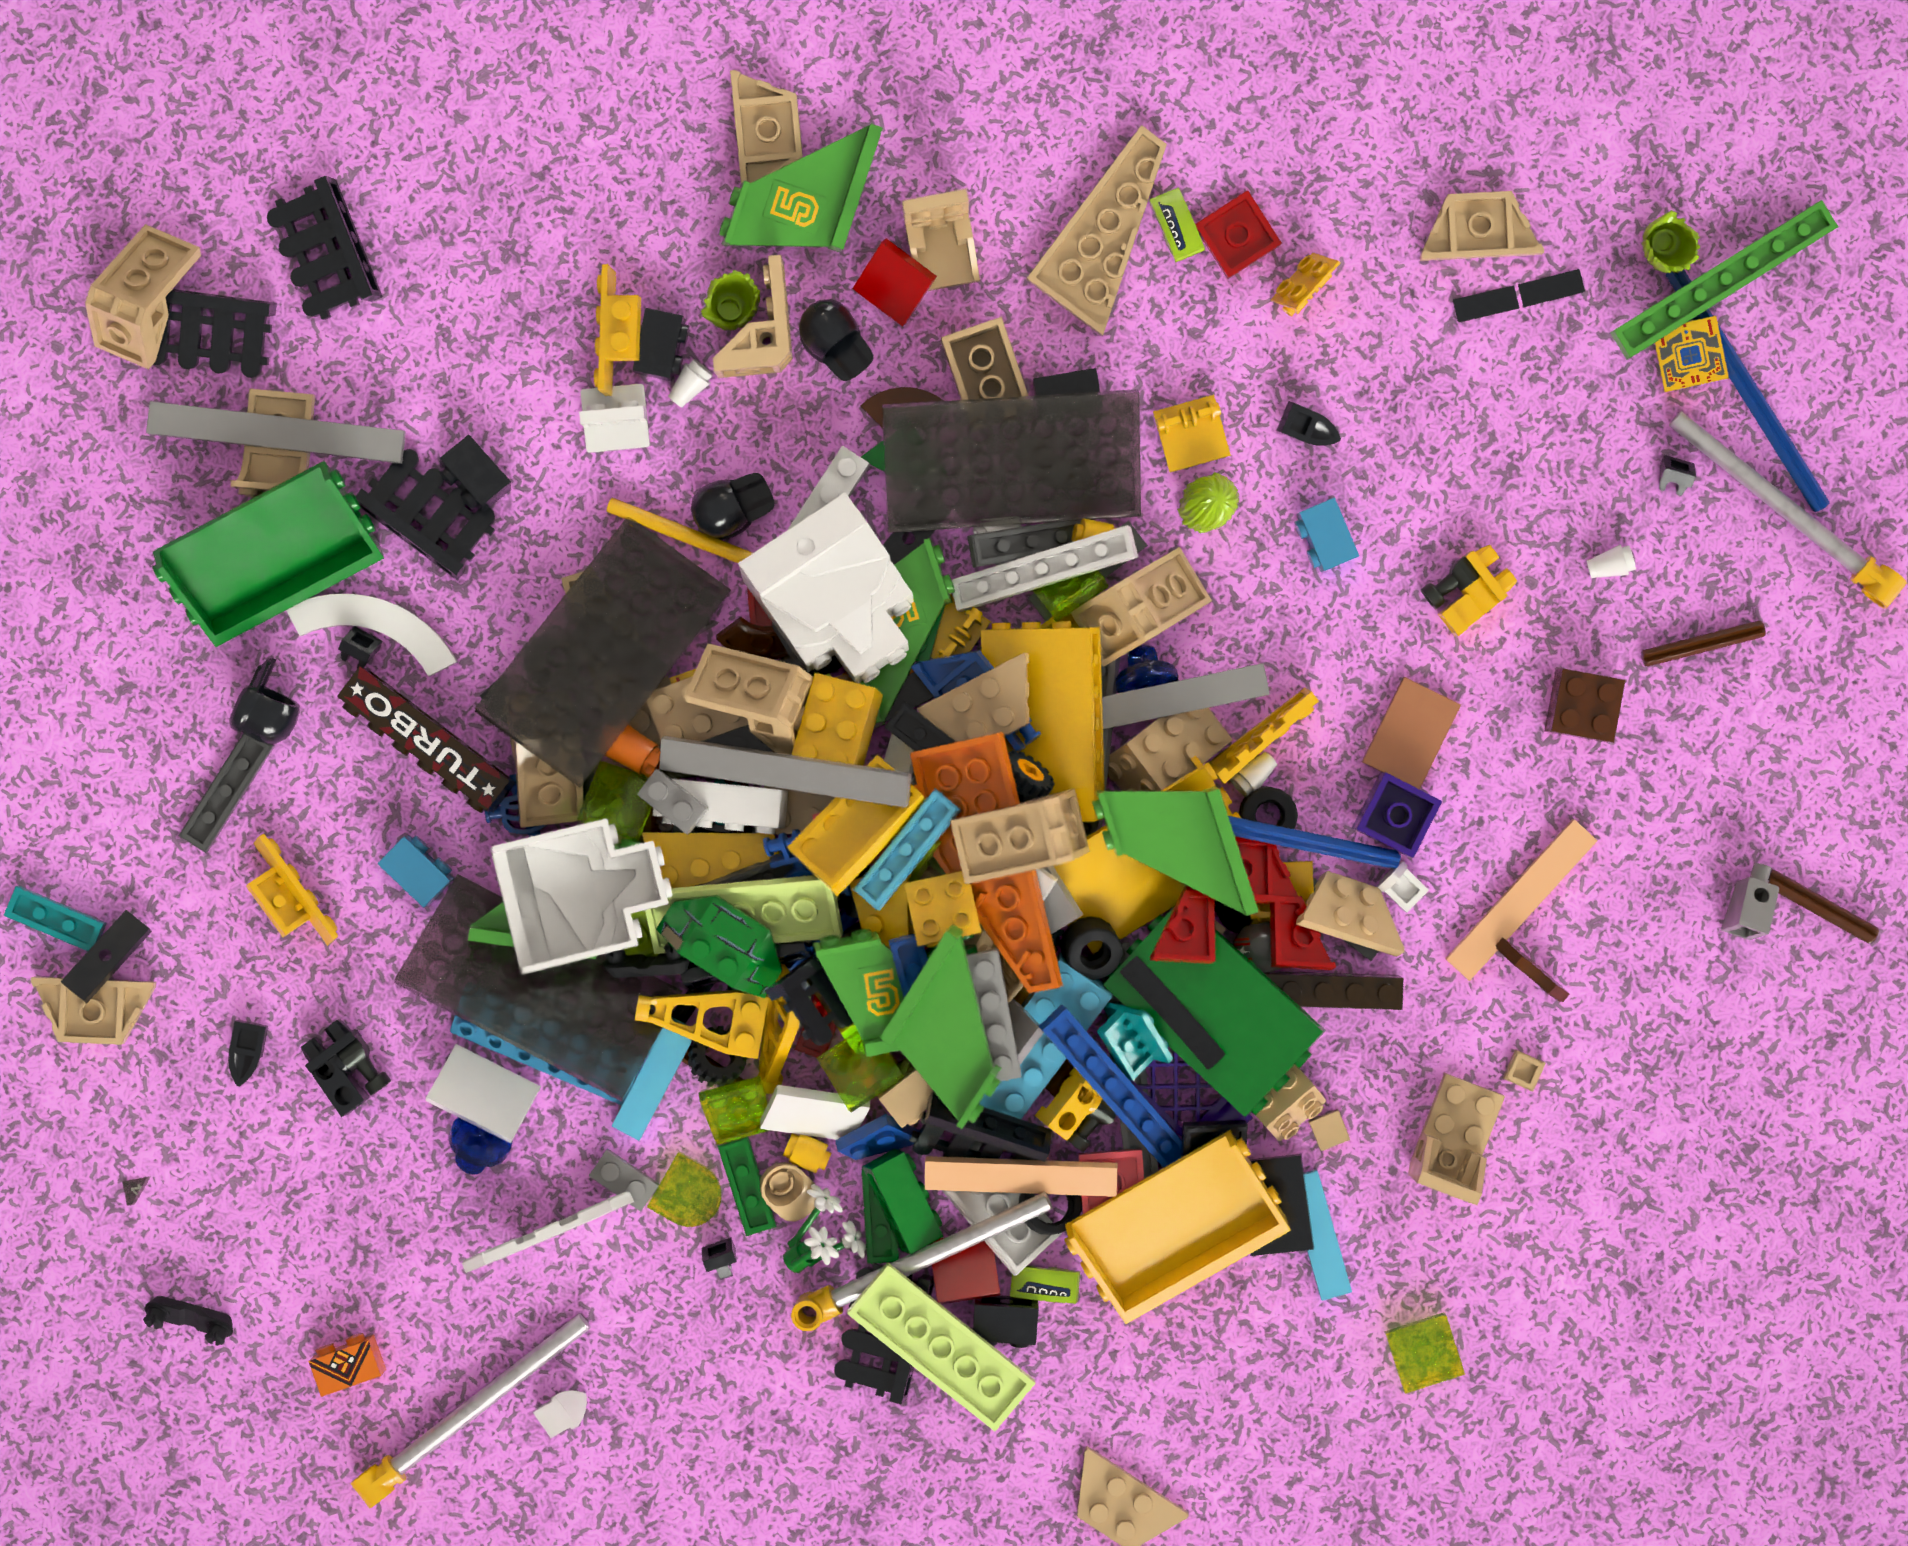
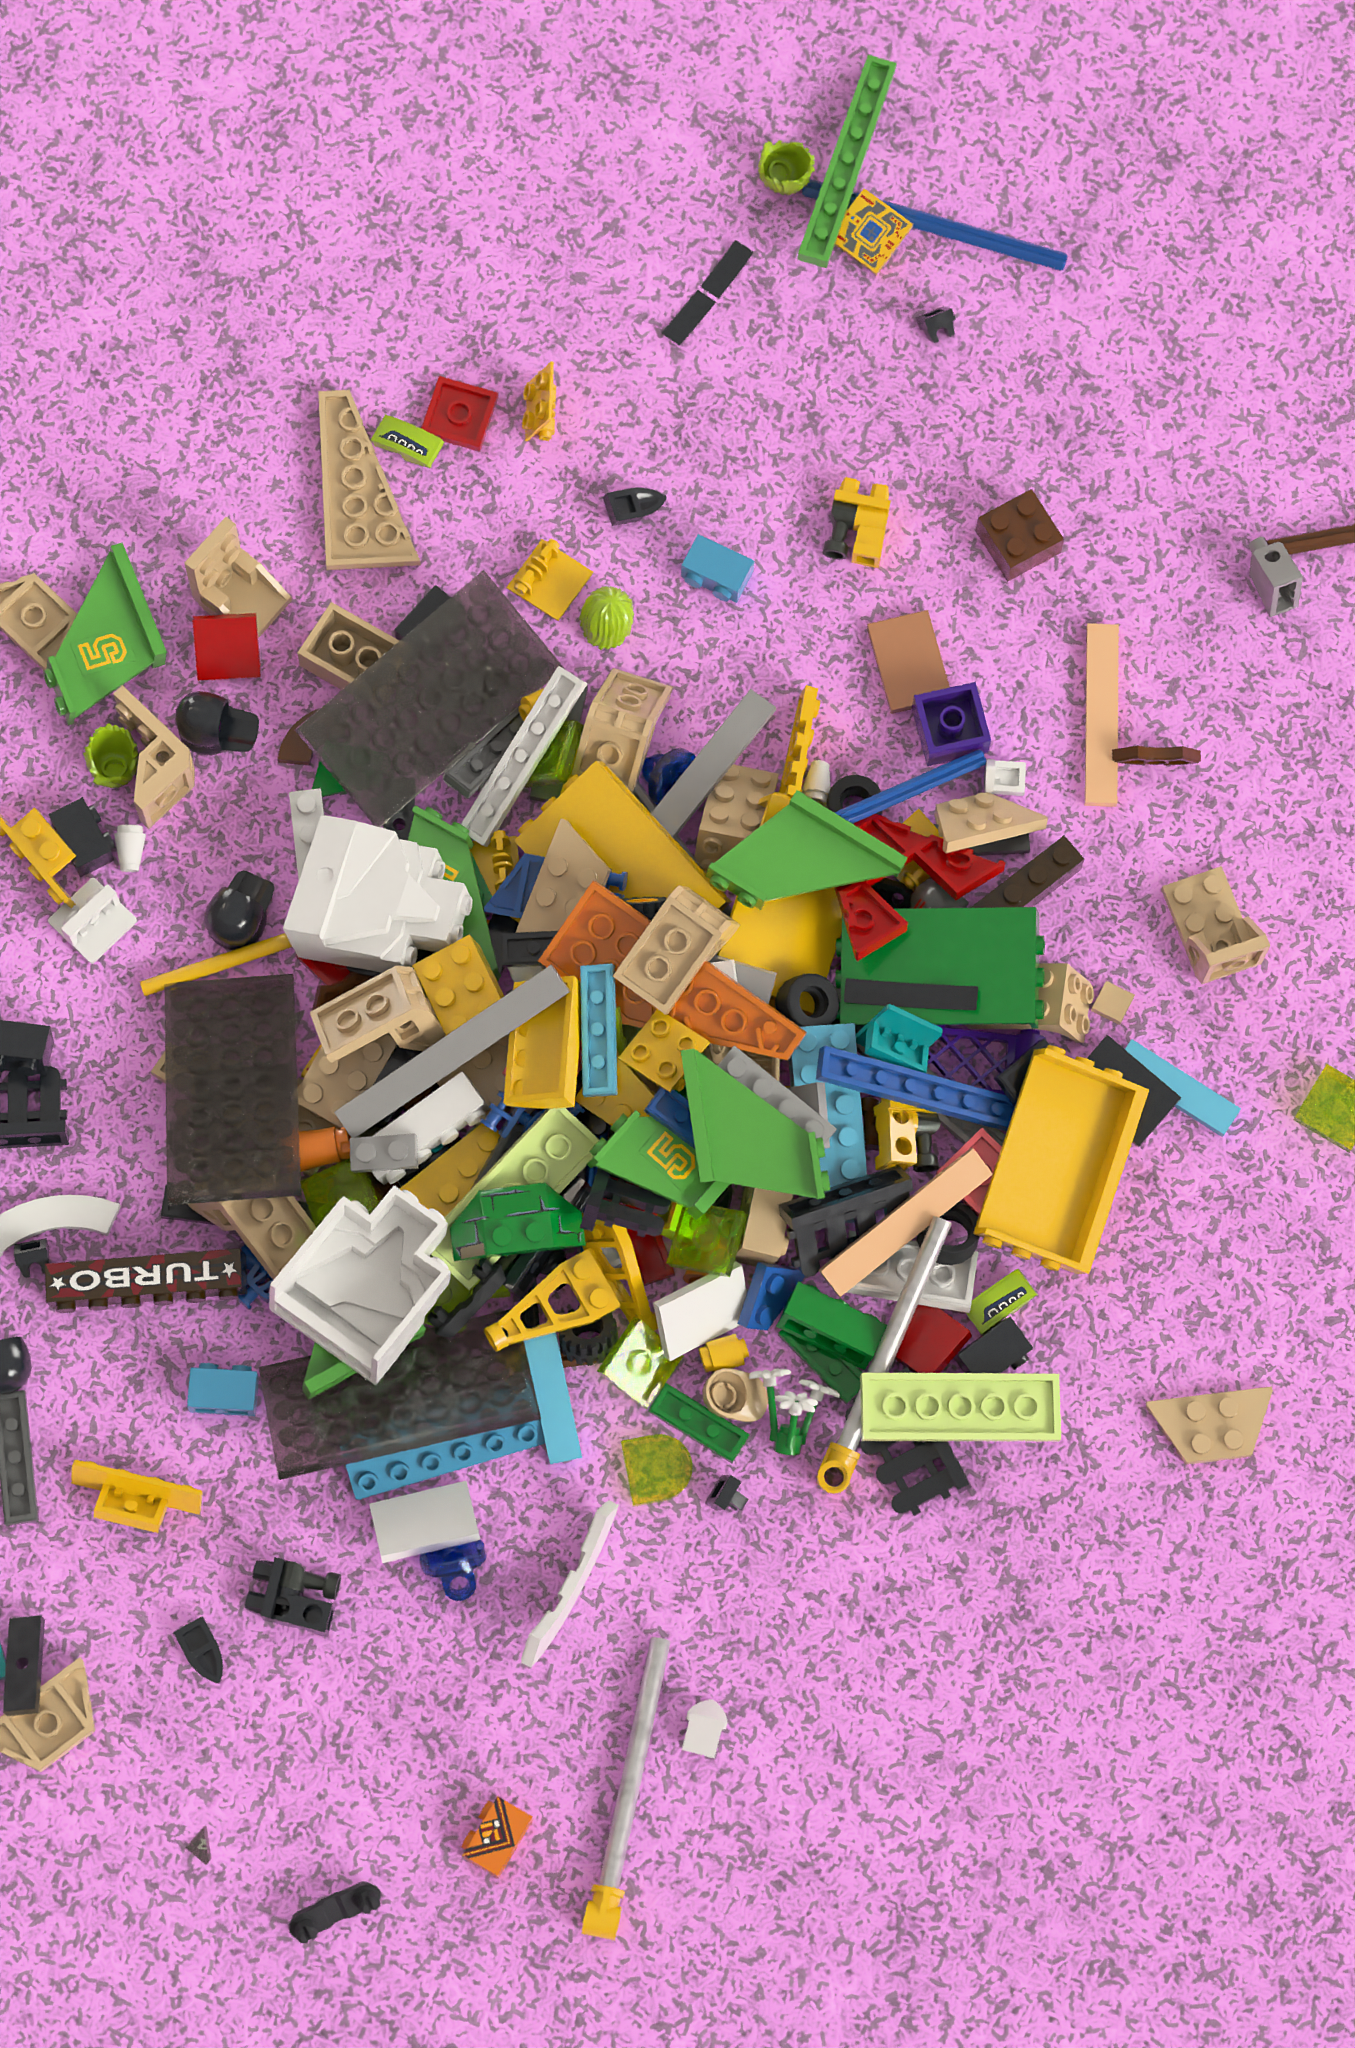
camera: 45 degrees left, 15 degrees down
(621, 1176) = (585, 1499): light grey plate -> none
(1480, 228) = (636, 267): tan wing -> none
(1524, 1070) = (1218, 837): tan tile -> none
(1613, 562) = (947, 420): white cone -> none
(1703, 643) = (1066, 424): reddish brown axle -> none
(1879, 583) = (1155, 278): flat silver piece -> none

